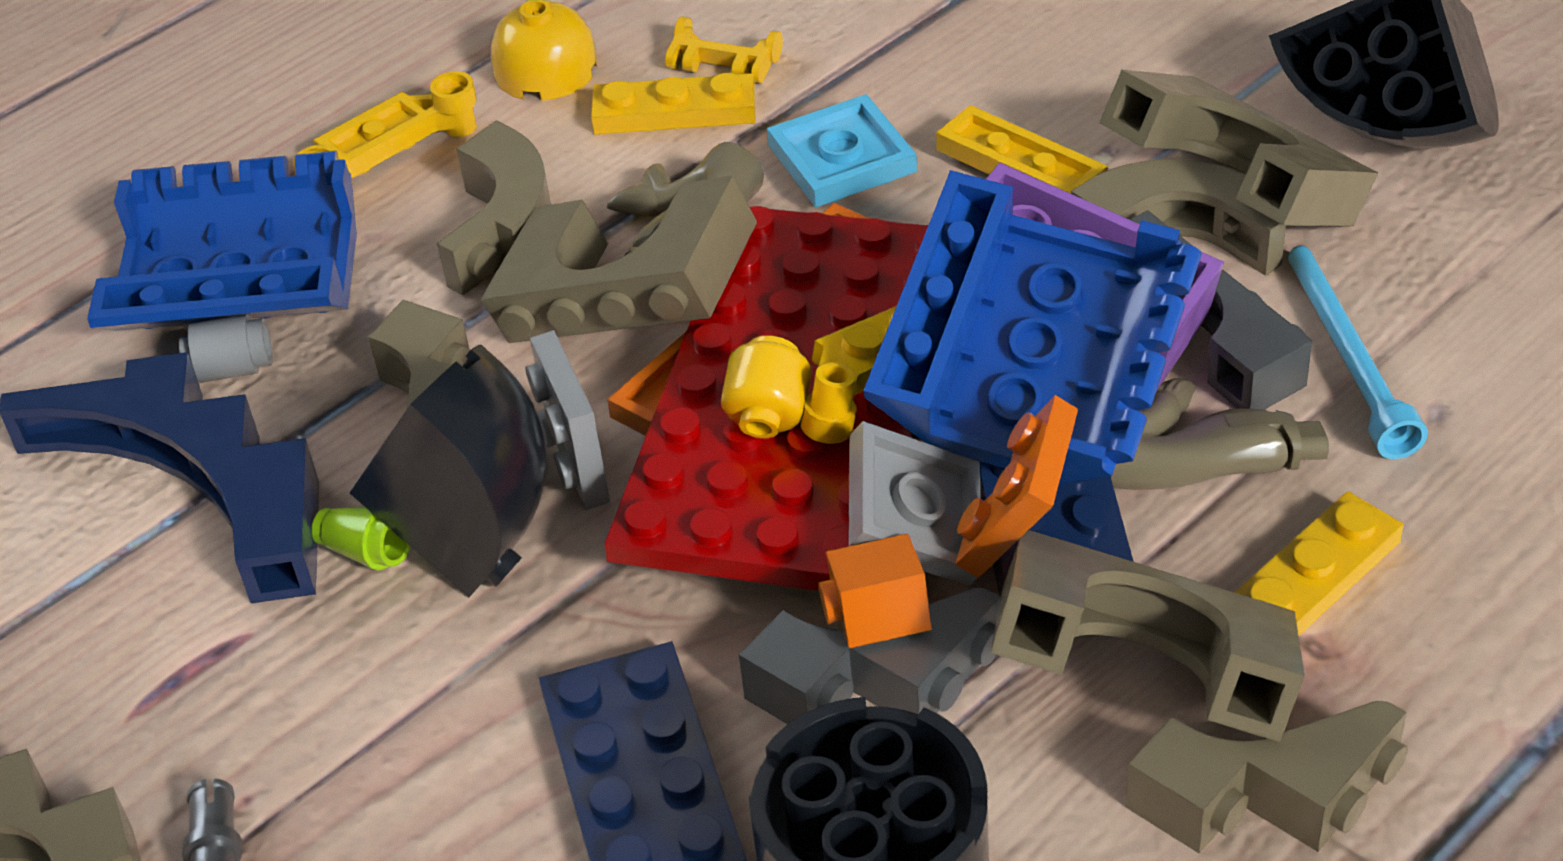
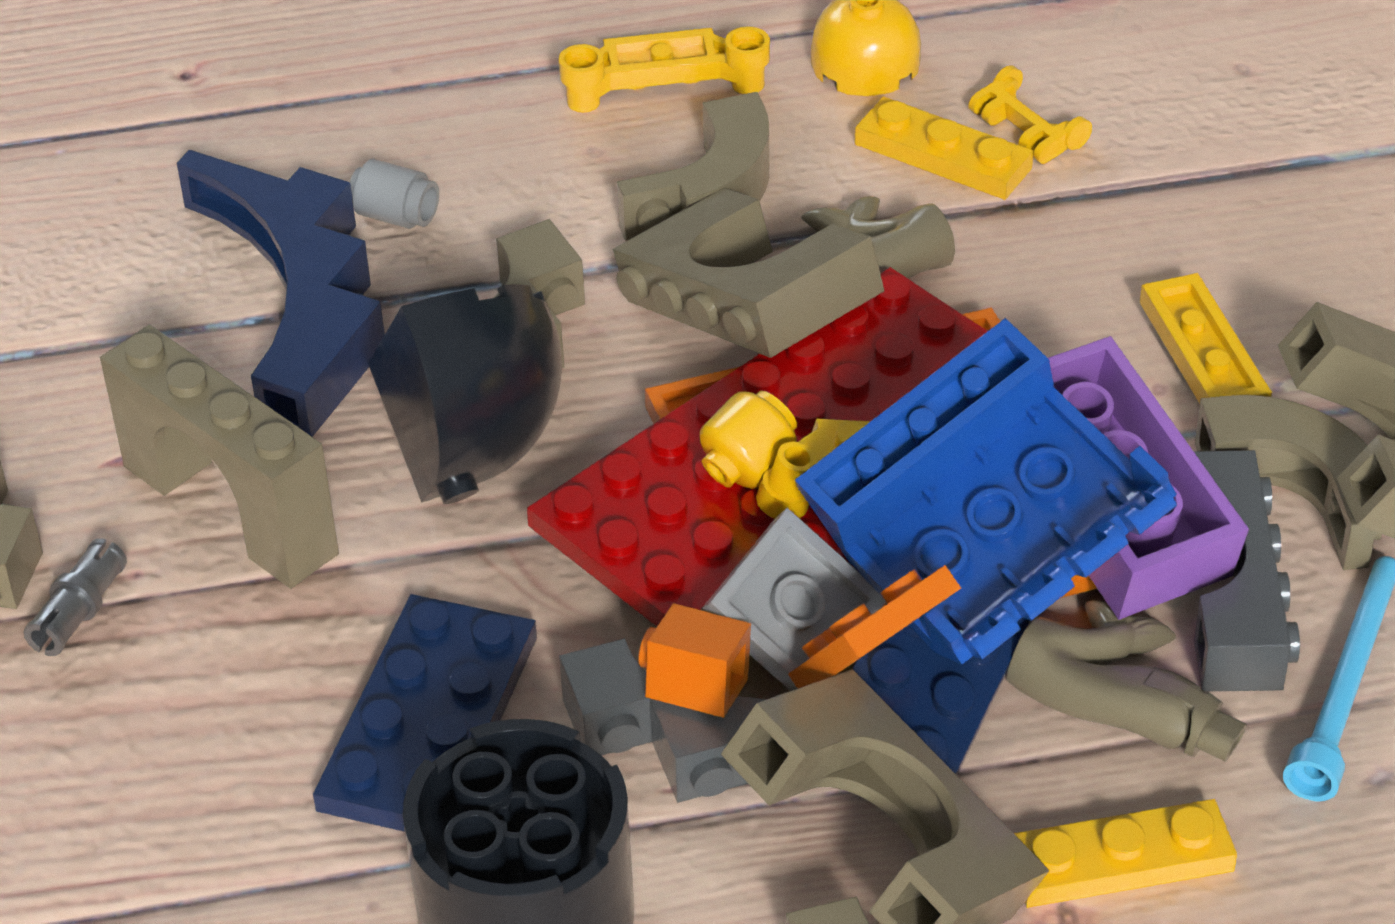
camera: 30 degrees right, 0 degrees up
(231, 245) = (463, 104): blue slope -> none
(345, 620) = (182, 414): none -> dark tan arch
(359, 537) = (366, 407): lime cone -> none
(567, 420) = (591, 387): light grey plate -> none
(841, 150) = (1047, 261): medium azure plate -> none

